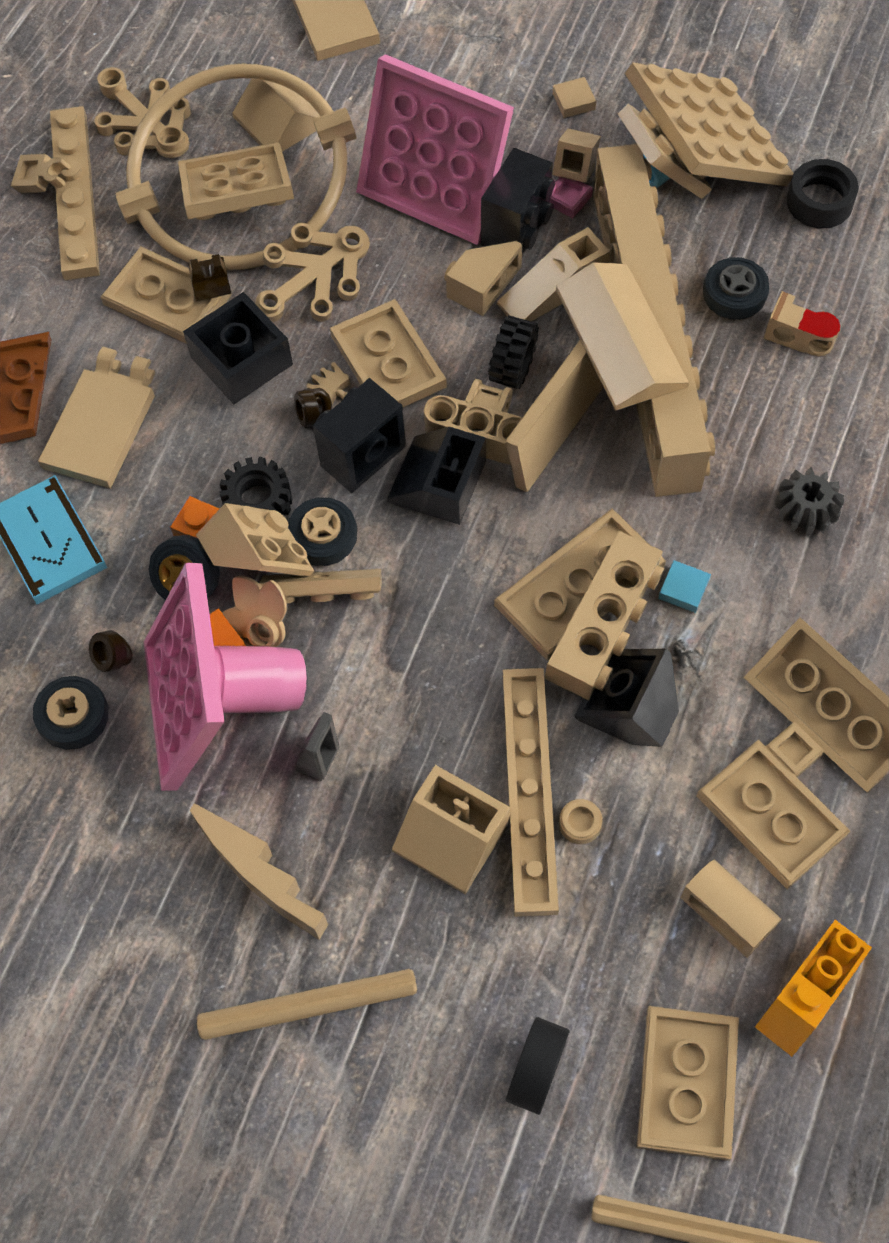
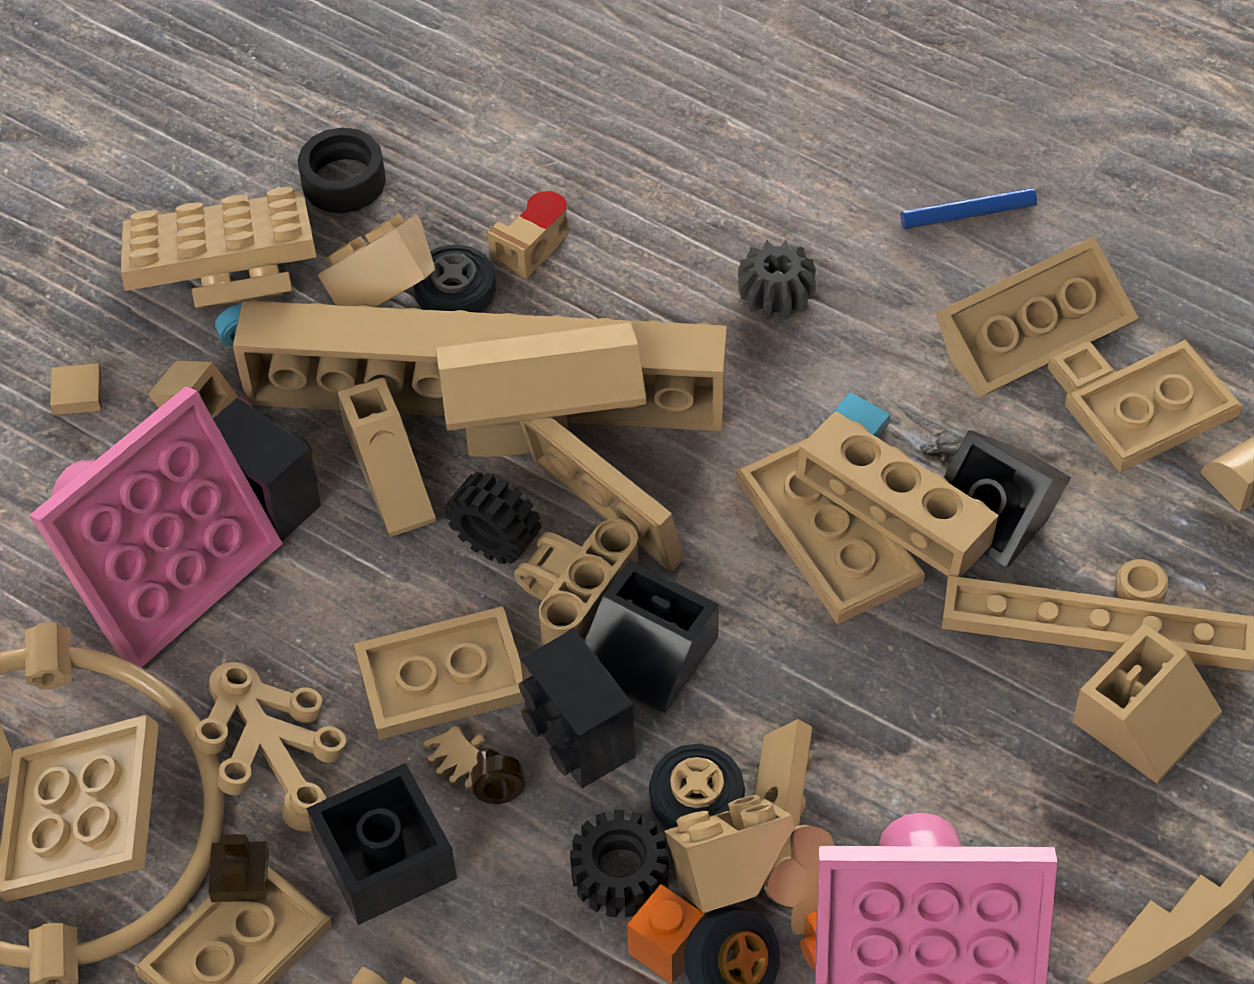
camera: 80 degrees left, 10 degrees down
(318, 749) = (1025, 817): dark grey slope -> none
(482, 275) = (349, 540): tan slope -> none
(722, 229) = (382, 267): none -> tan slope

